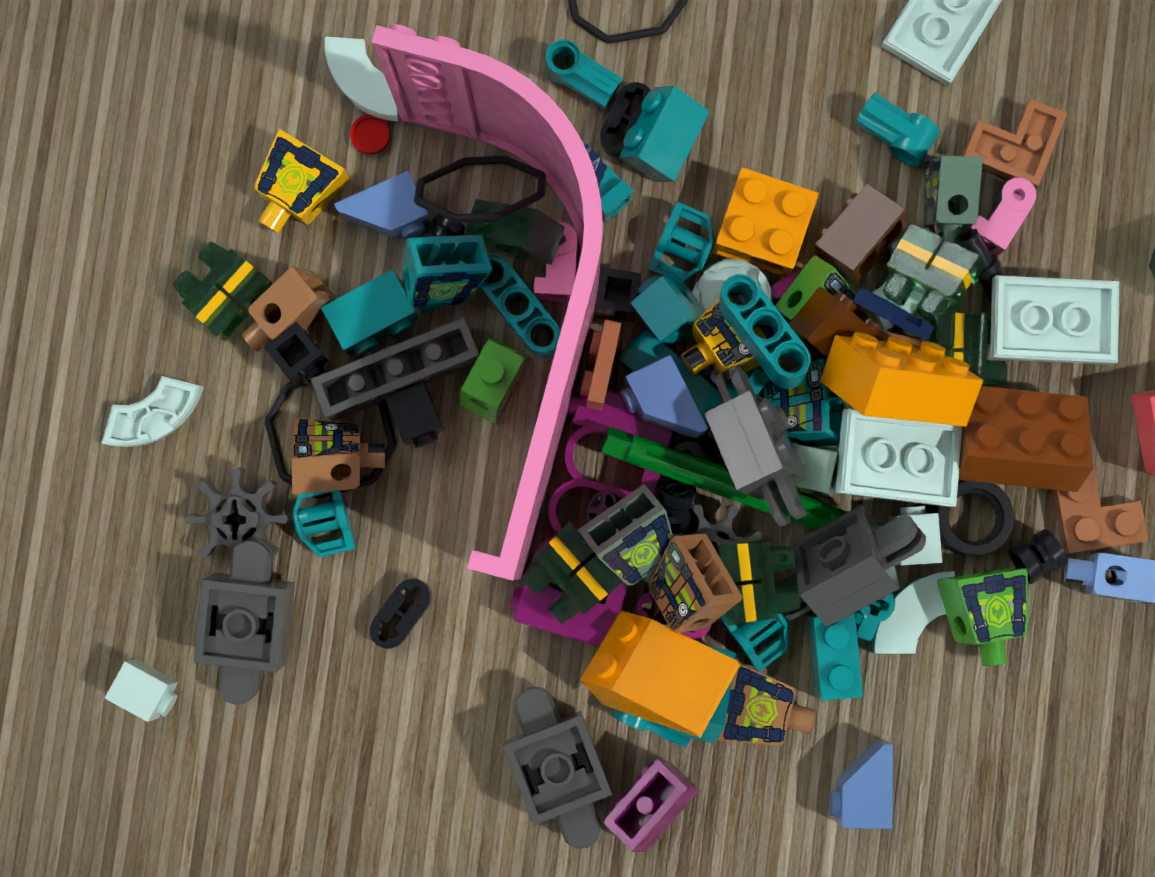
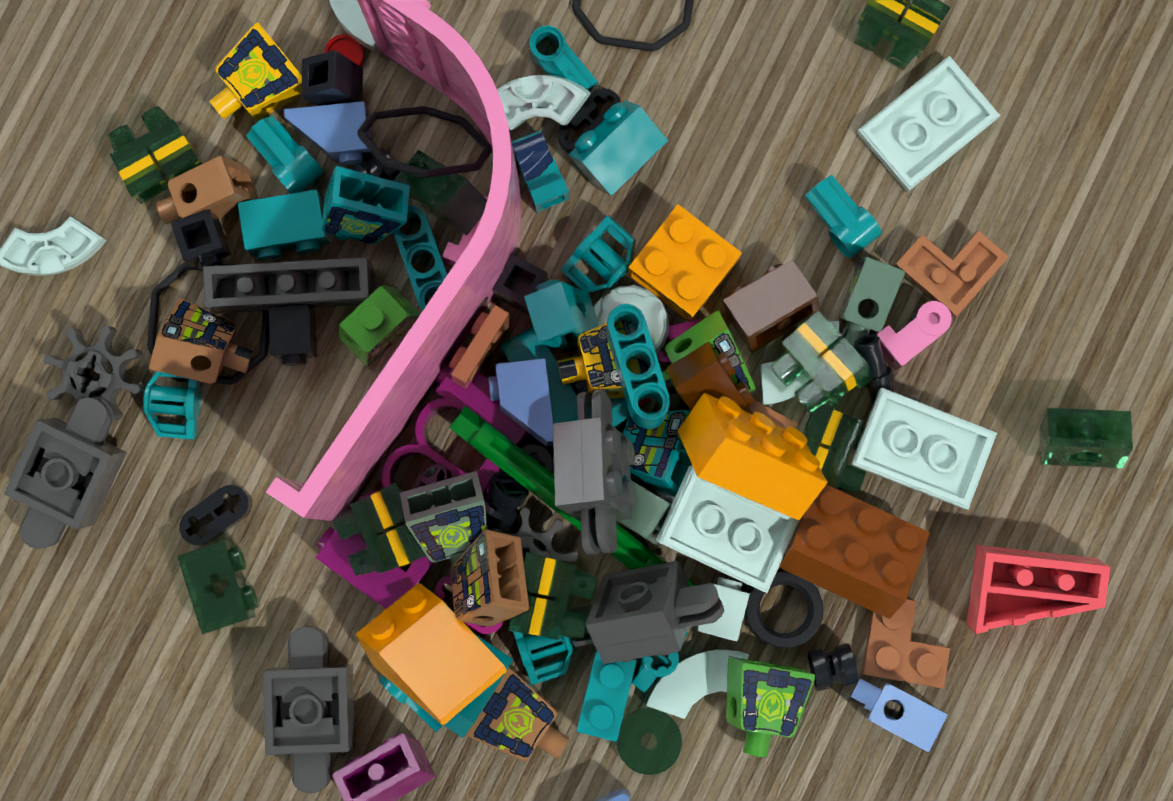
camera: 20 degrees right, 0 degrees up
(356, 253) = (290, 163): none -> teal piece
(369, 160) = (331, 79): none -> black brick
(406, 672) = (203, 570): none -> clear green brick
(588, 105) = (541, 97): none -> light aqua tile
(893, 314) = (774, 396): dark blue tile -> none
(906, 689) = (654, 759): none -> clear green piece

